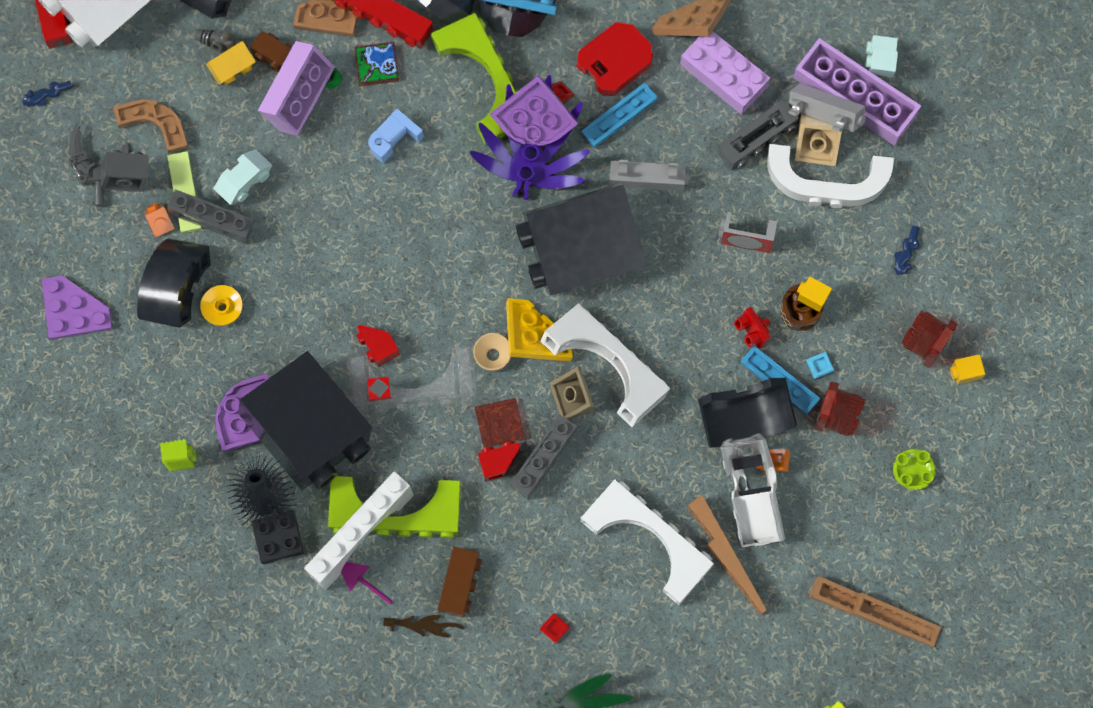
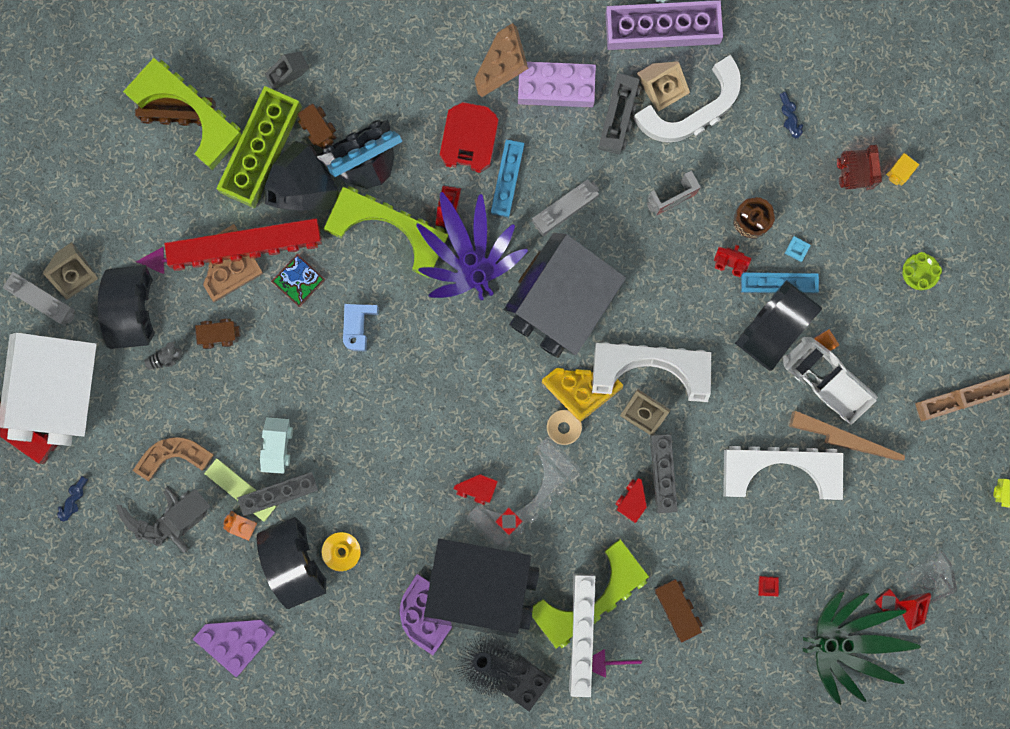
camera: 40 degrees left, 10 degrees up
(178, 455) = (406, 685): lime brick -> none
(231, 63) = (192, 367): yellow brick -> none
(296, 88) = (258, 348): lavender brick -> none
(334, 79) = (275, 318): green tile -> none
(425, 623) = (677, 656): dark brown piece -> none
(499, 422) = (609, 473): clear red tile -> none
(534, 115) = (453, 230): medium lavender plate -> none
(813, 293) = (759, 203): yellow brick -> none
(826, 108) = (654, 55): light grey brick -> none
(839, 411) = (841, 272): clear red piece -> none

